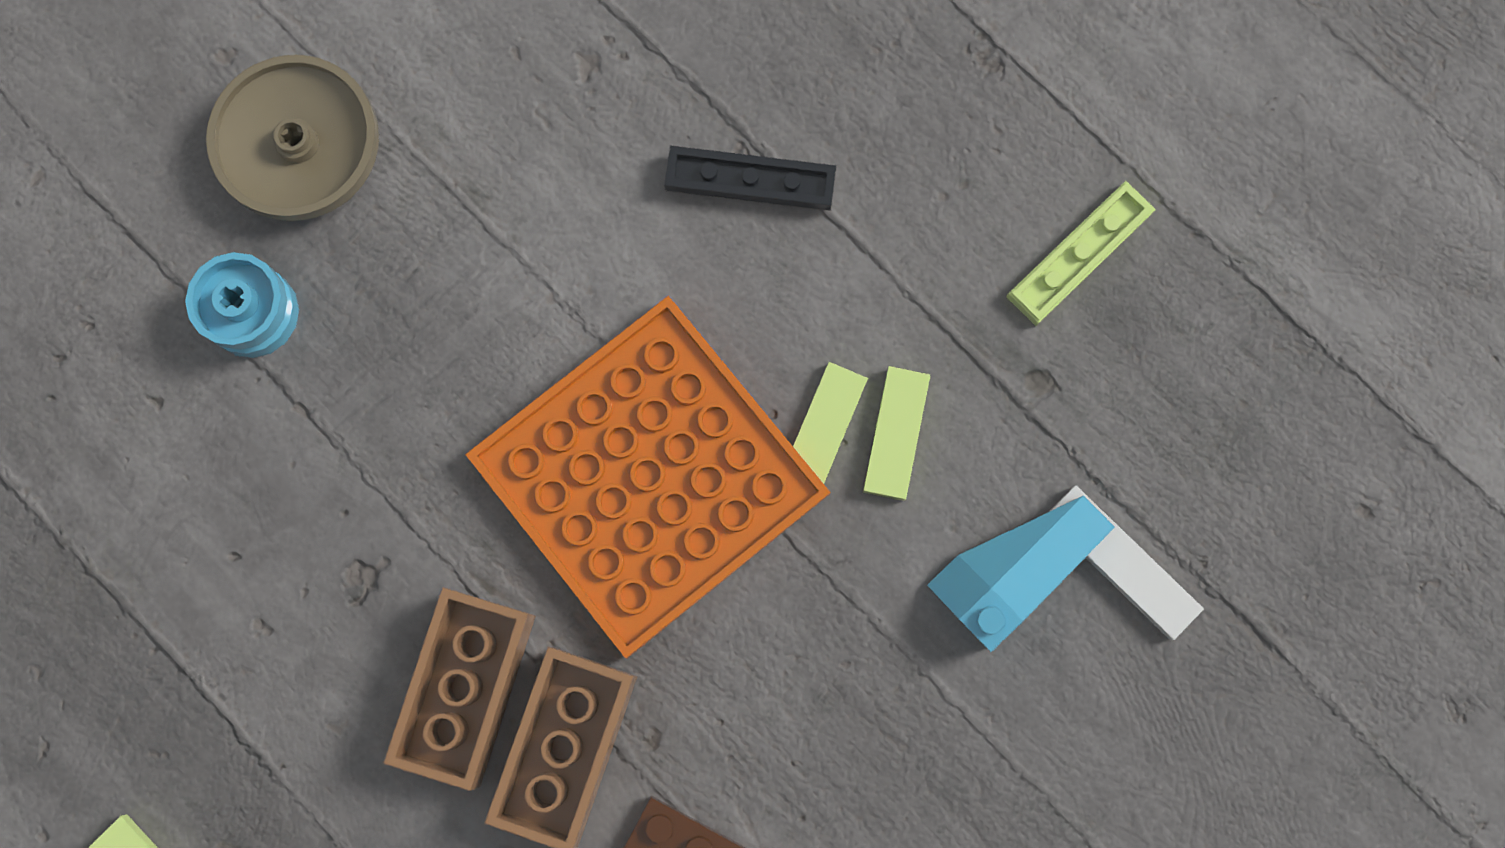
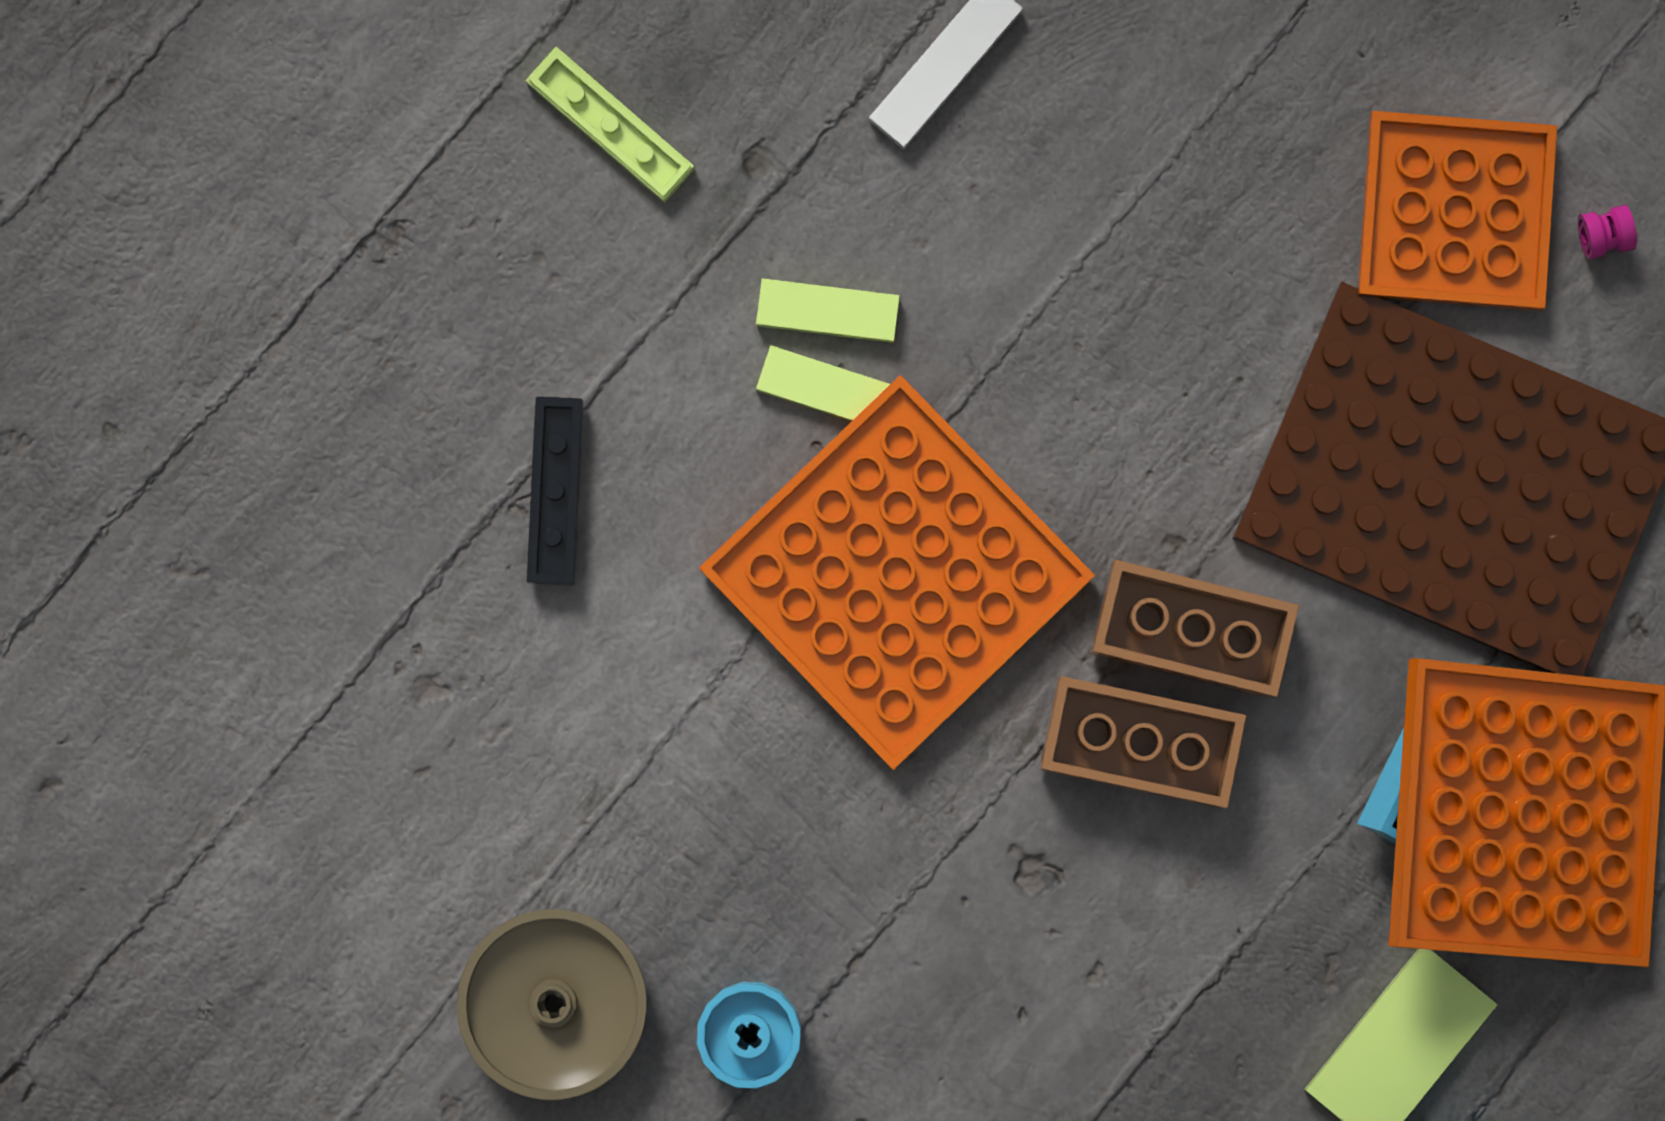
camera: 95 degrees left, 5 degrees up
(1011, 575) = (971, 178): medium azure wedge -> none

